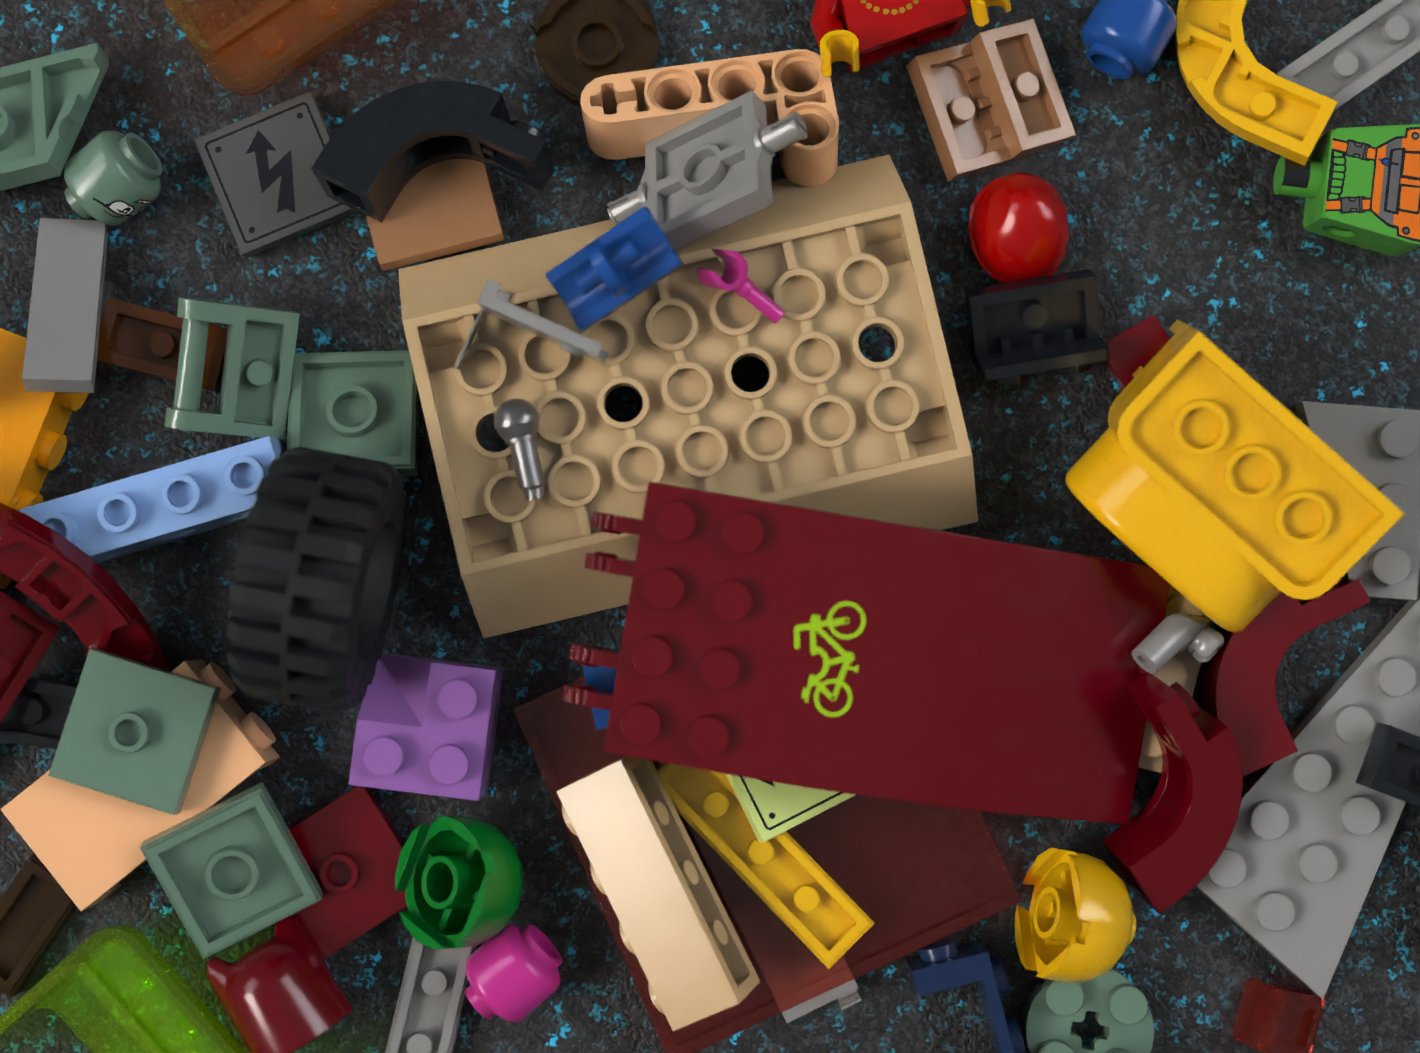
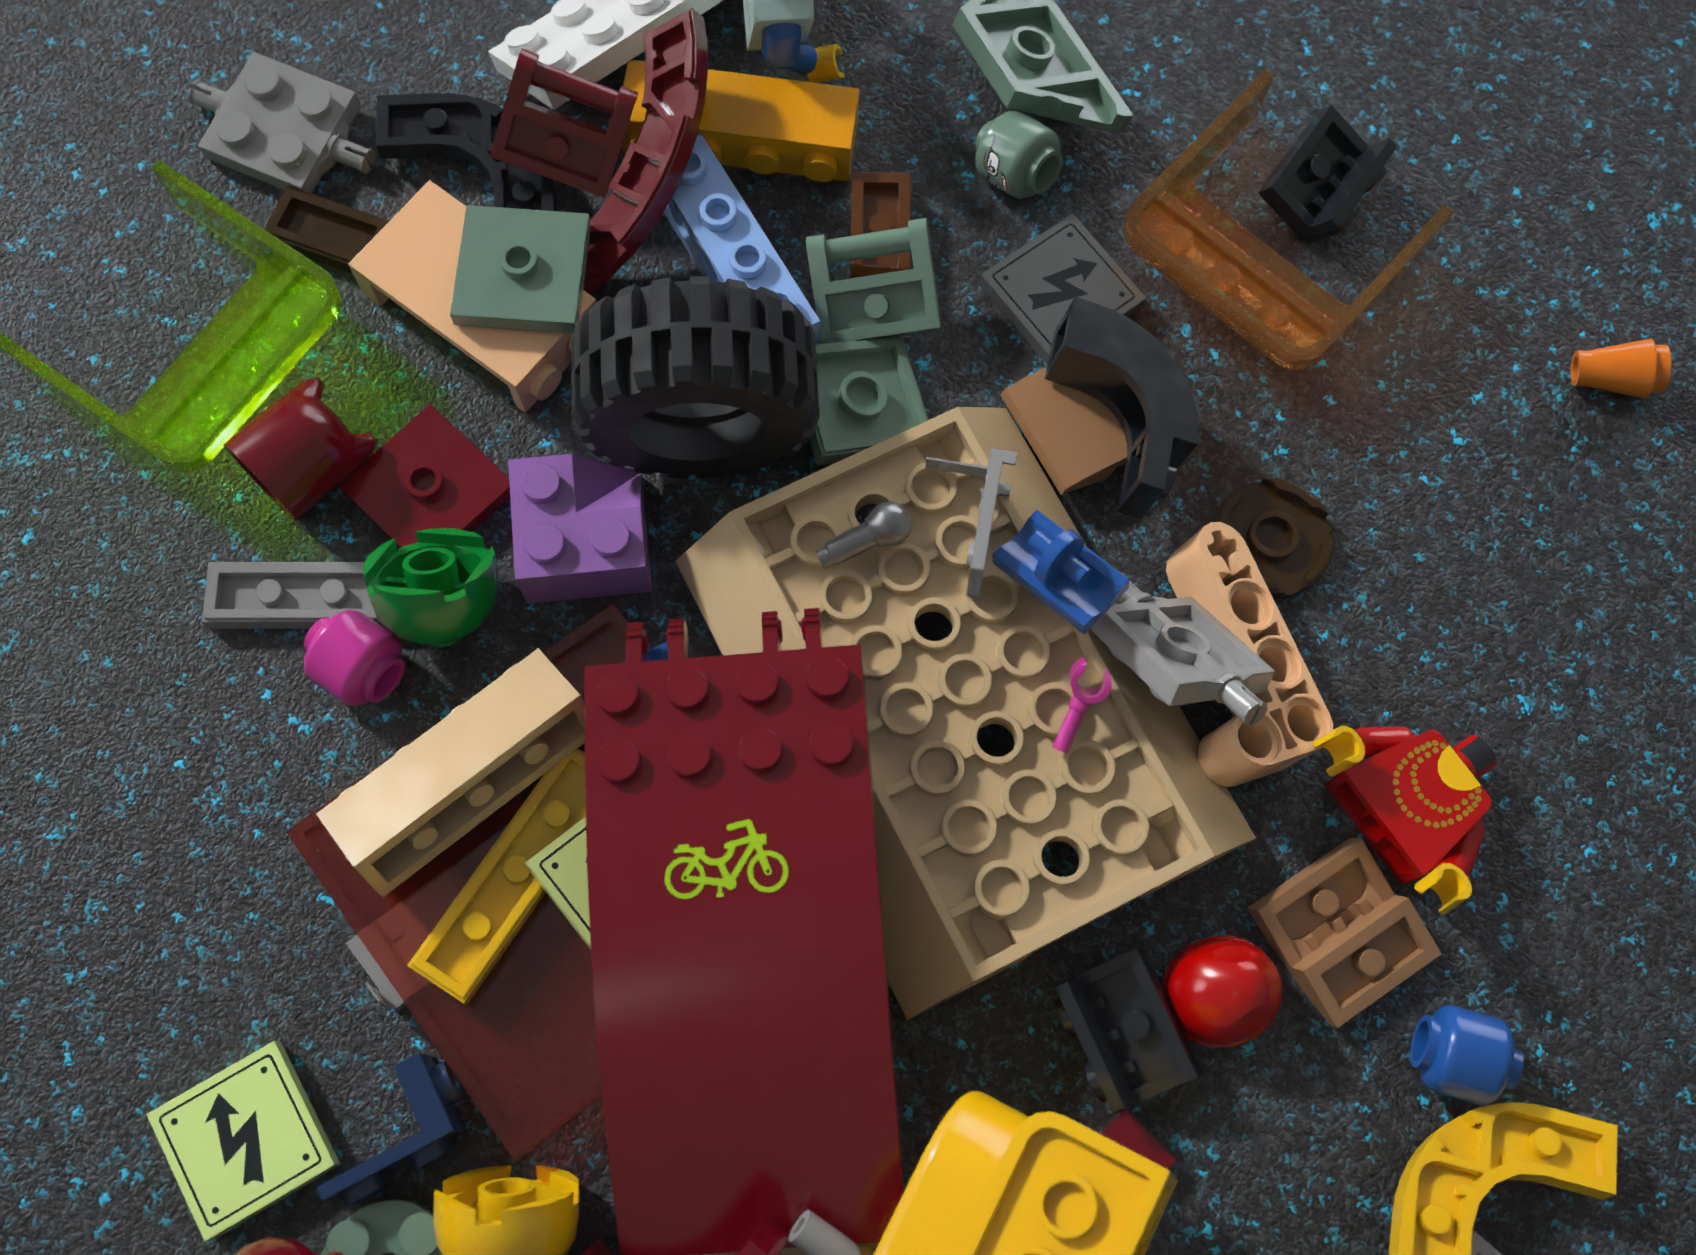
camera: 75 degrees right, 15 degrees down
(65, 306) = (892, 137): light grey tile -> none
(232, 870) = (408, 382): sand green plate -> none

